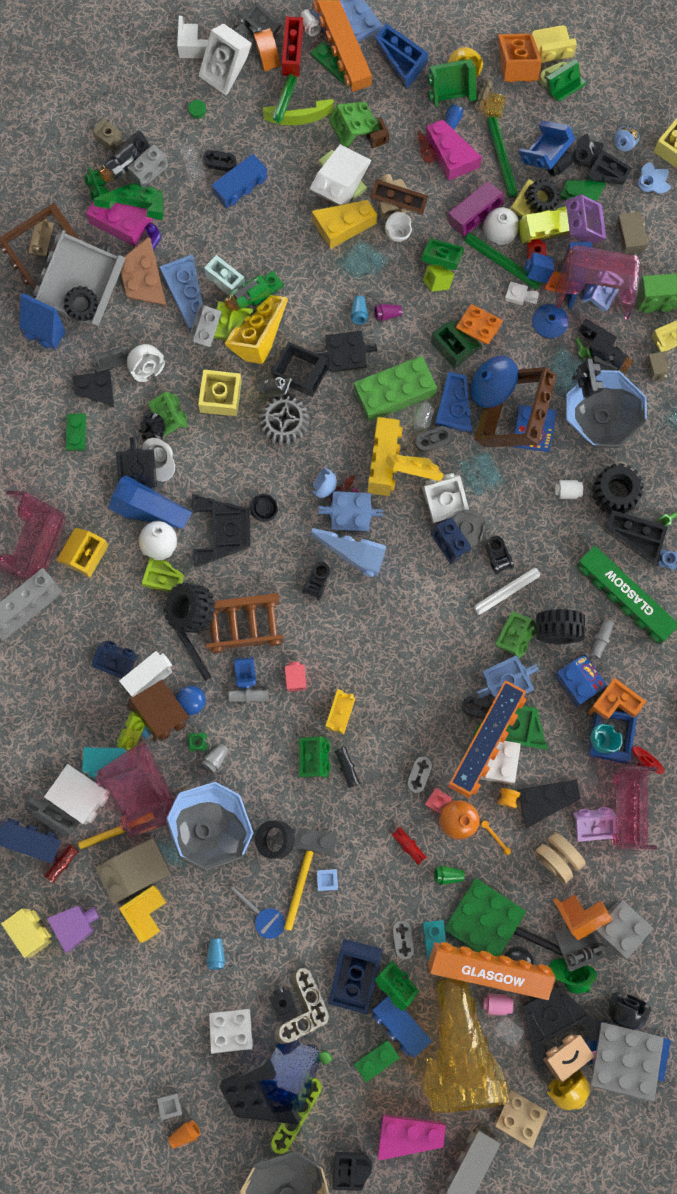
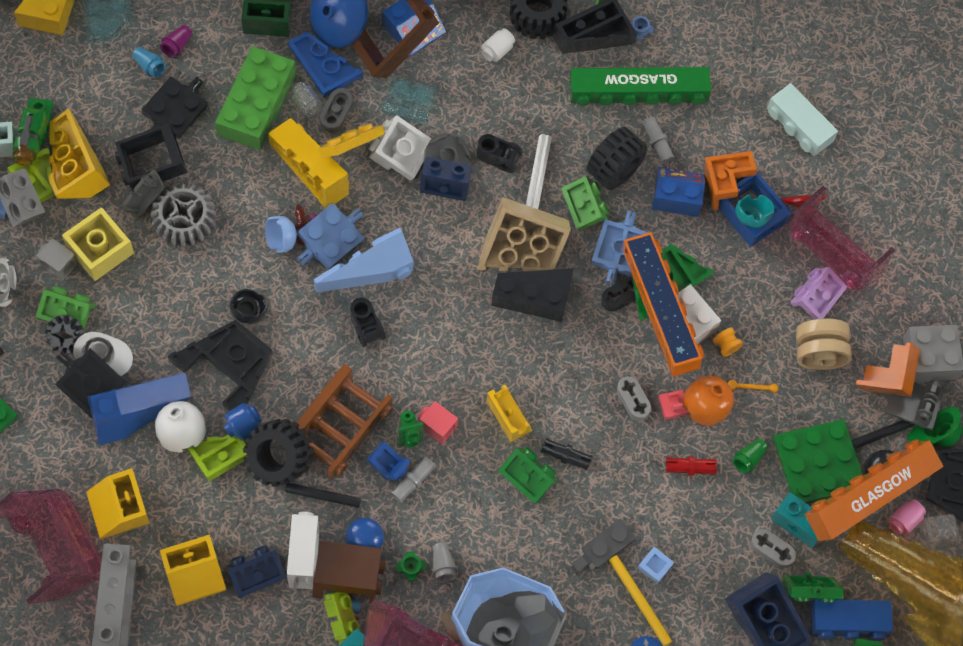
camera: 50 degrees left, 10 degrees down
(82, 627) = (192, 570): none -> yellow slope
(190, 571) = (242, 421): none -> blue head
(191, 380) = (56, 259): none -> light grey brick
(261, 839) = (556, 584): black tyre -> none
(272, 666) = (410, 431): none -> green hinge
(429, 658) = (534, 292): none -> black wedge
(457, 620) = (523, 238): none -> tan wedge
(546, 800) = (759, 314): black wing -> none

